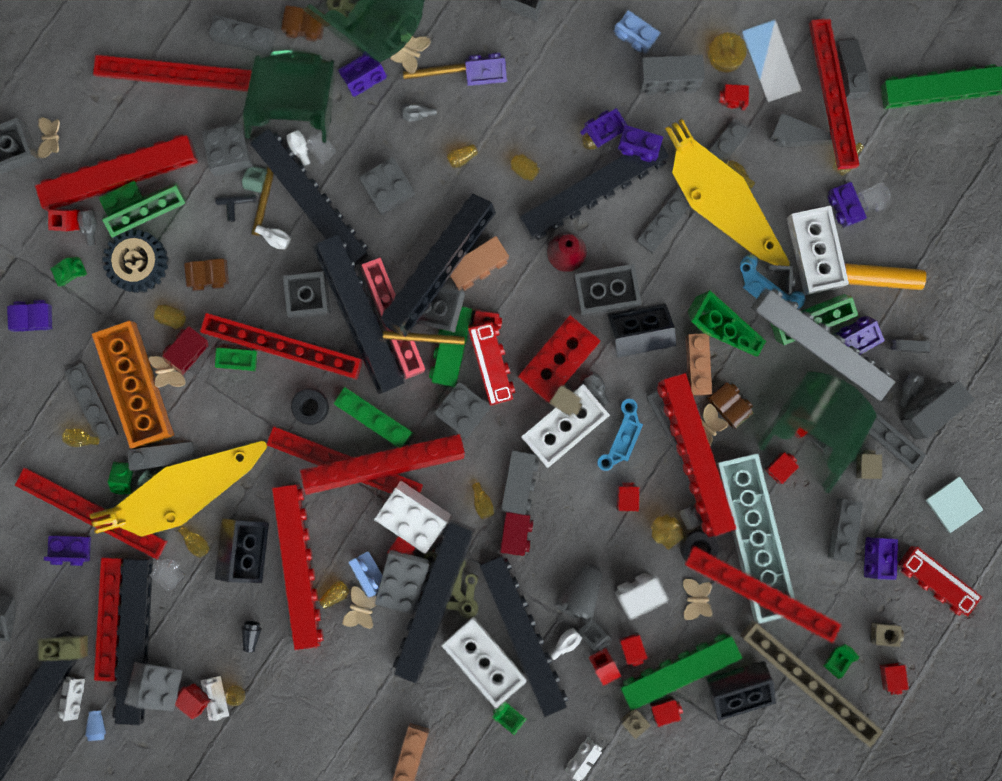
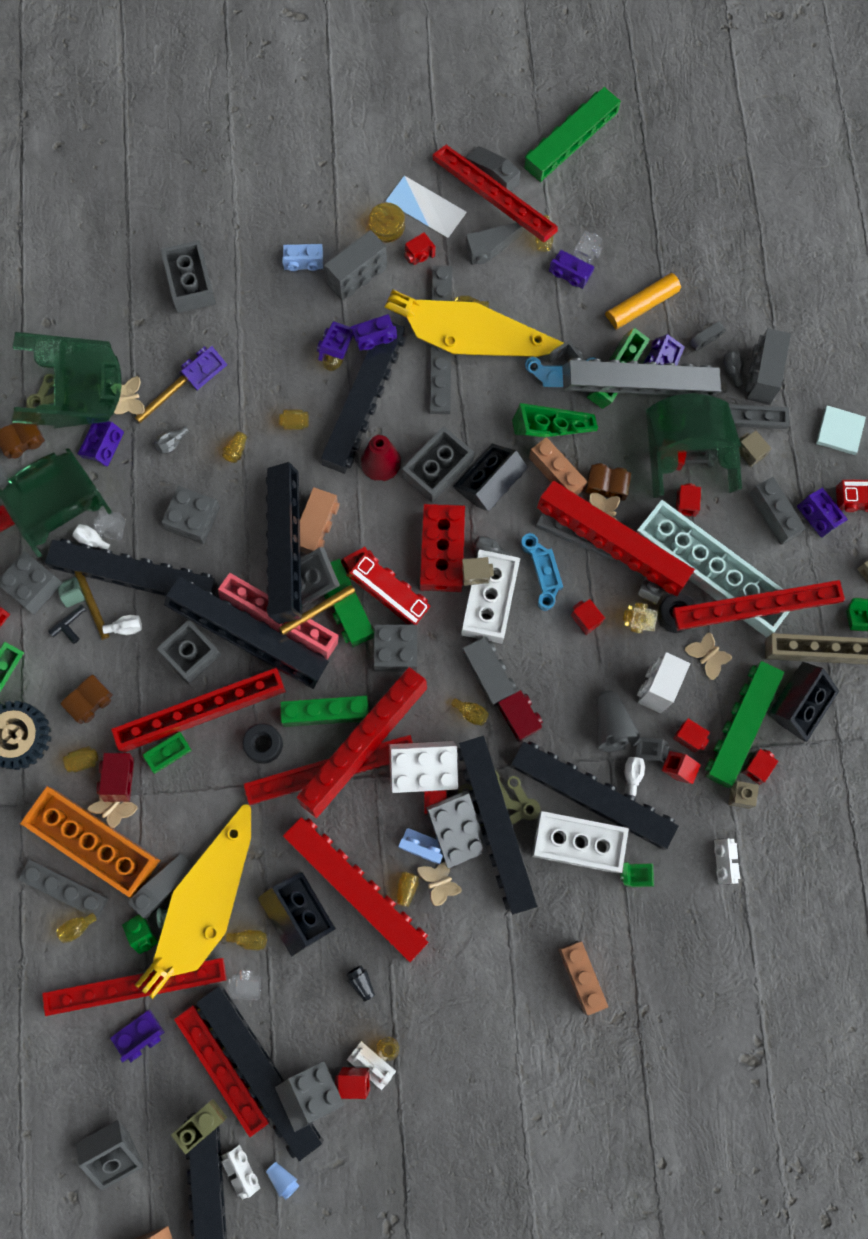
camera: 45 degrees left, 10 degrees down
(829, 245) = (578, 315): white brick -> none

